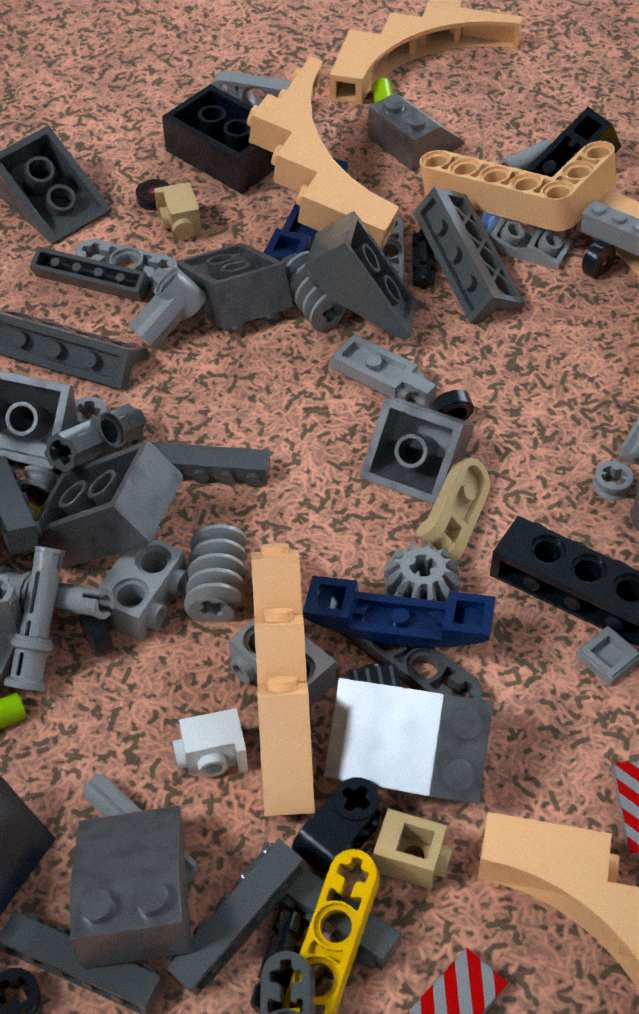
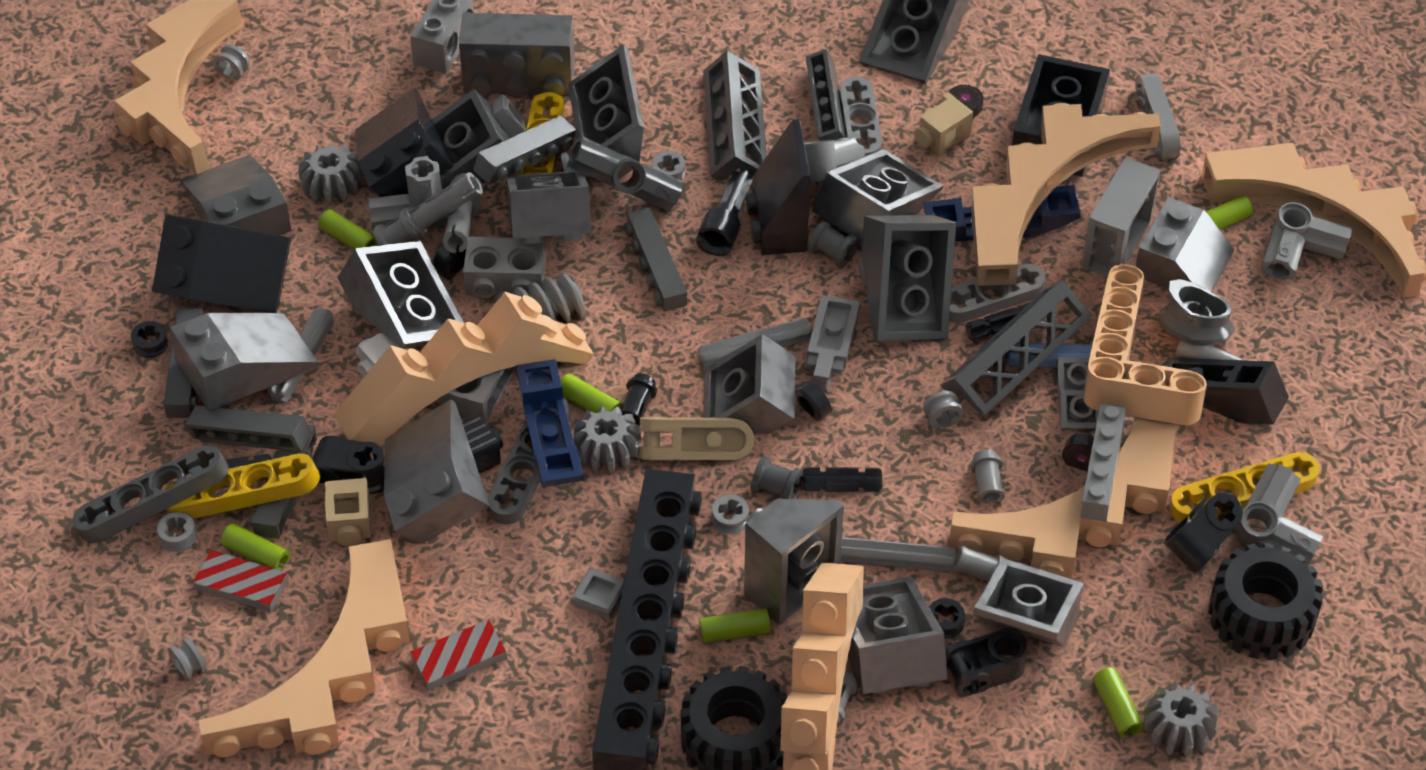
camera: 65 degrees right, 0 degrees up
(141, 688) = (398, 292): none -> flat silver slope
(195, 398) = (722, 224): none -> black piece
(210, 323) = (781, 196): none -> black slope
(270, 330) = (833, 244): none -> dark grey bush
(351, 429) = (782, 334): none -> light grey axle
(361, 112) = (1120, 217): none -> light grey window
(364, 571) = (586, 395): none -> lime axle
(375, 537) = (640, 391): none -> black pin
(411, 972) = (254, 547): none -> lime axle
(434, 69) = (1299, 230): none -> light grey piece
(492, 142) = (1196, 314): none -> dark grey hat
(507, 326) = (943, 409): none -> light grey bush
(535, 465) = (776, 479): none -> dark grey bush
(548, 423) = (842, 479): none -> black axle
(560, 506) = (721, 507): none -> light grey bush
(593, 326) = (987, 470): none -> light grey pin

